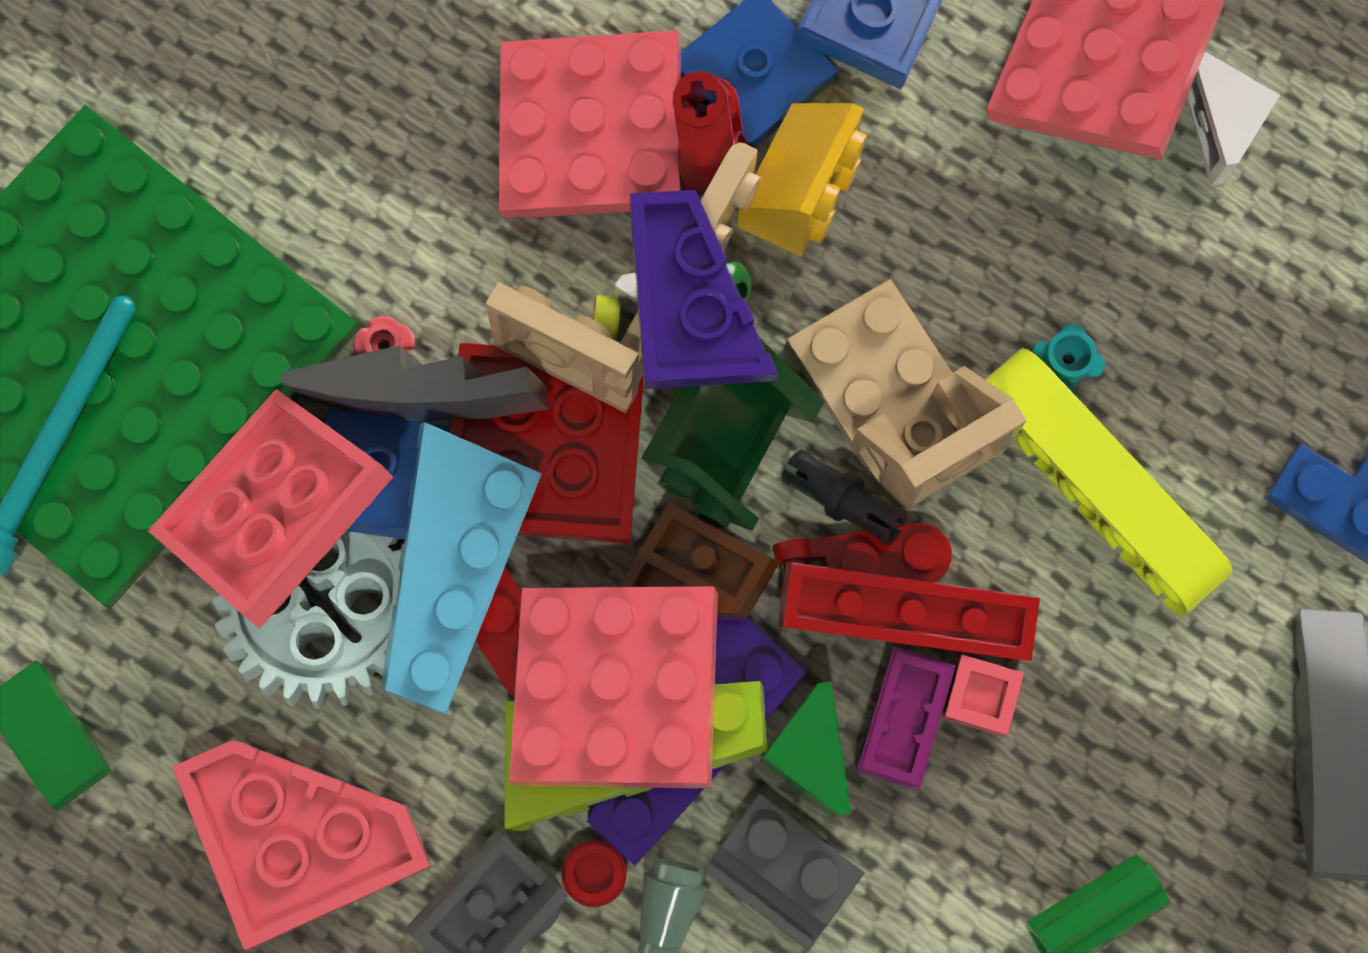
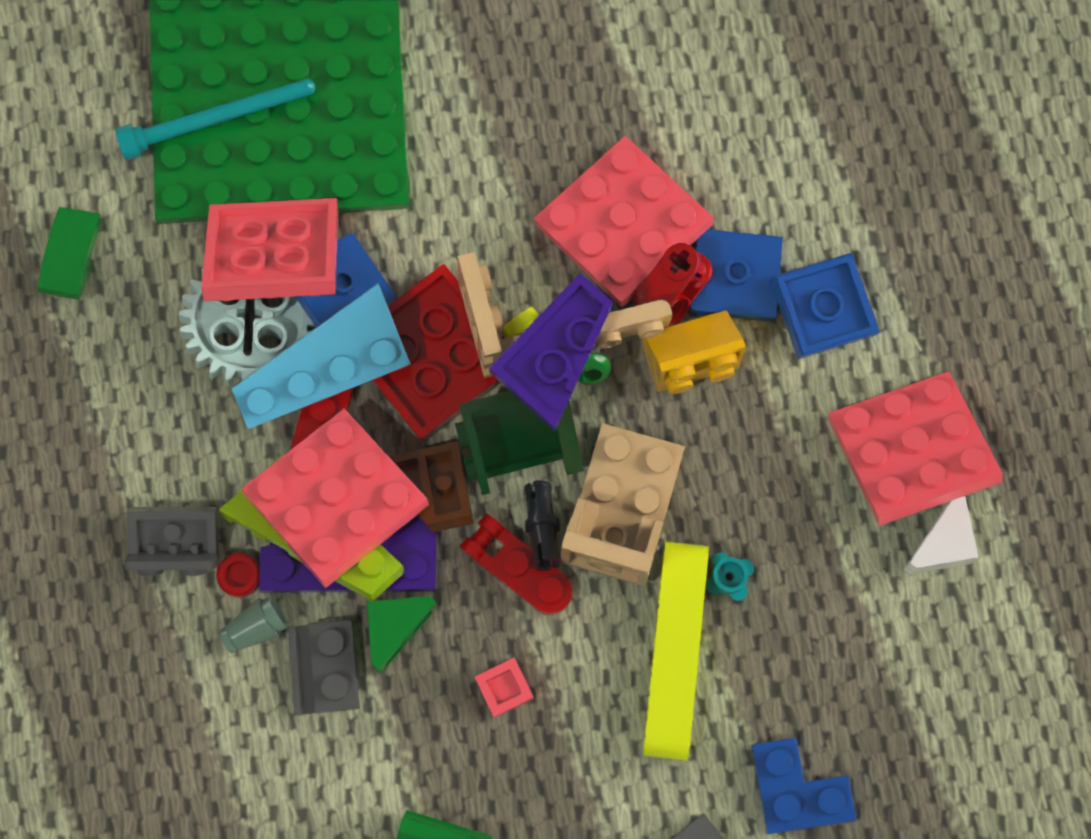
camera: 50 degrees right, 0 degrees up
(292, 839) = (124, 415): coral plate -> none
(380, 330) = (411, 239): coral plate -> none
(399, 386) = (394, 258): dark grey slope -> none
(905, 719) = (456, 659): magenta plate -> none
(908, 611) = (511, 610): red plate -> none

